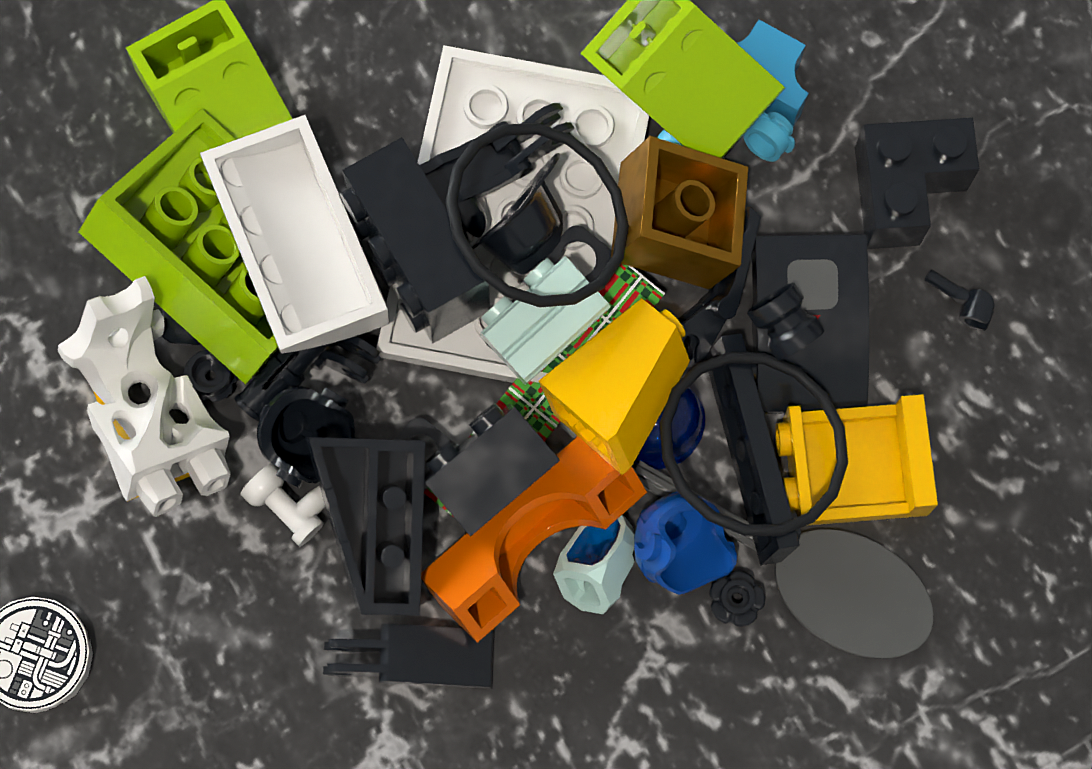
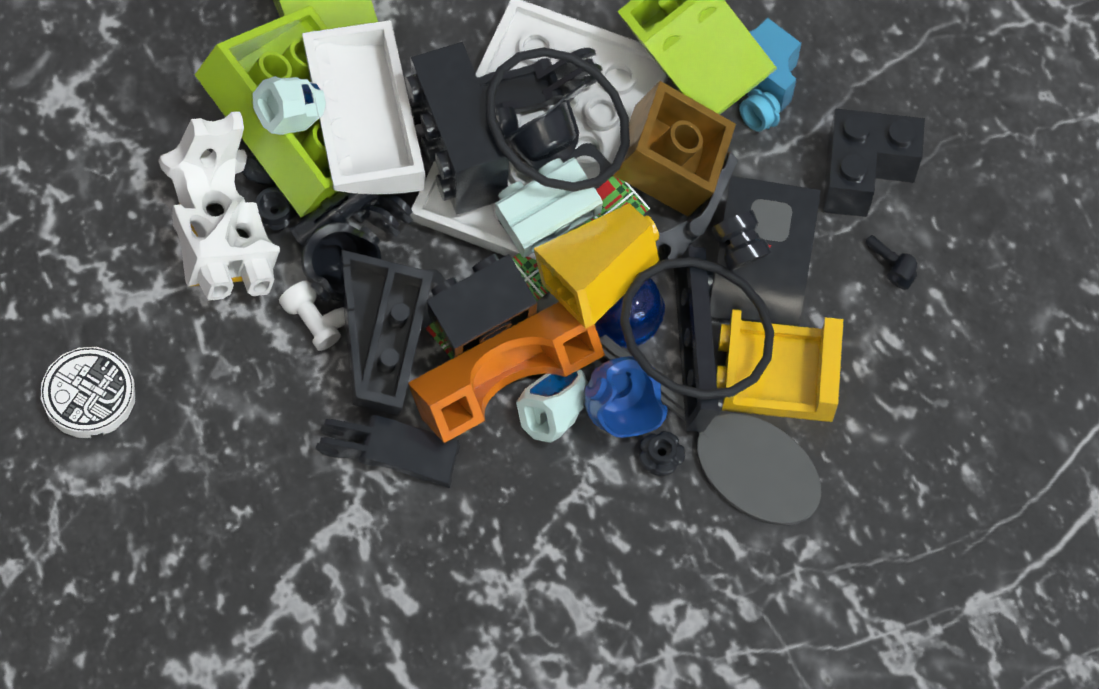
camera: 10 degrees right, 10 degrees down
(203, 259) = (288, 104): none -> light aqua rock

